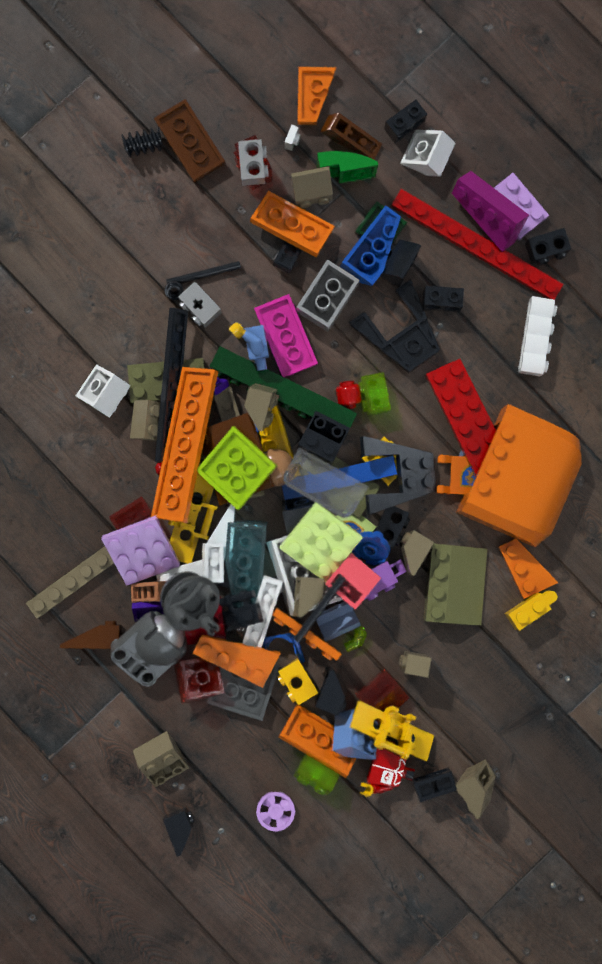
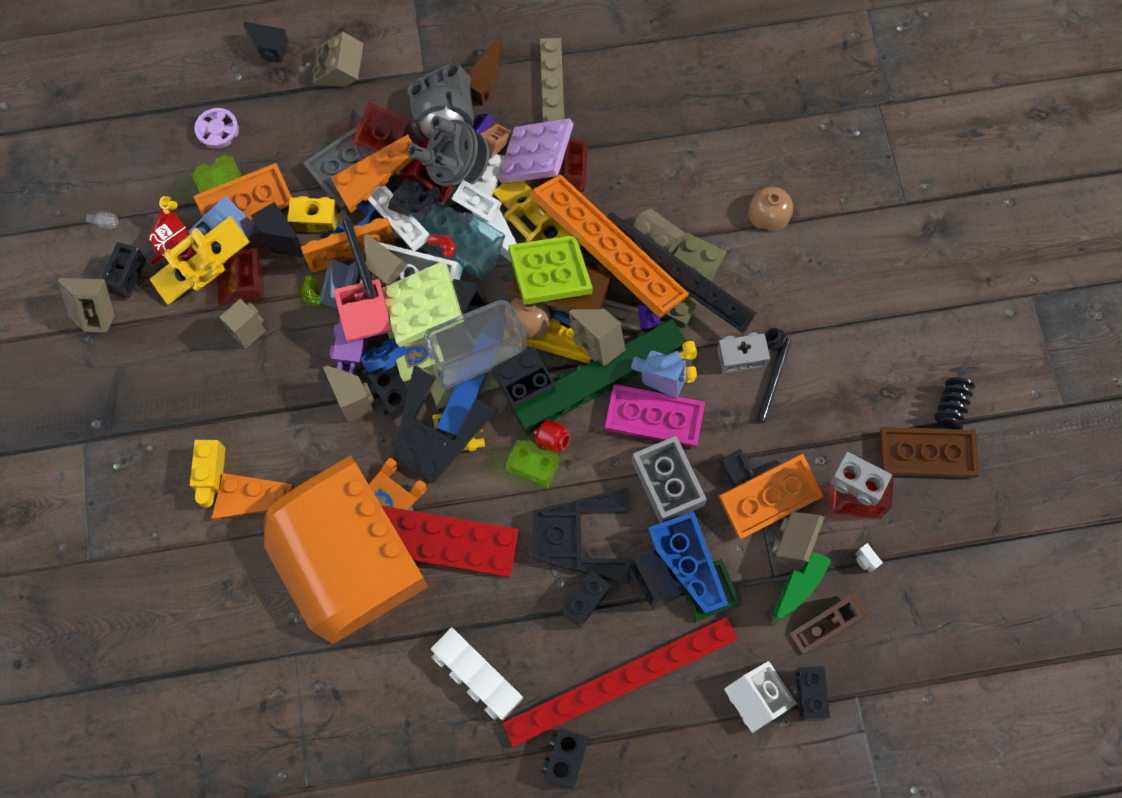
camera: 130 degrees right, 15 degrees down
(71, 355) = (771, 209): none -> medium nougat cylinder
(103, 390) = (714, 214): white slope -> none
(262, 560) = (444, 242): none -> red arm
(312, 92) = (908, 615): orange wing -> none
(404, 834) = (103, 220): none -> clear cylinder
(455, 584) = (288, 416): olive slope -> none
(490, 209) = (650, 717): magenta wedge -> none
(517, 193) = (636, 756): lavender plate -> none

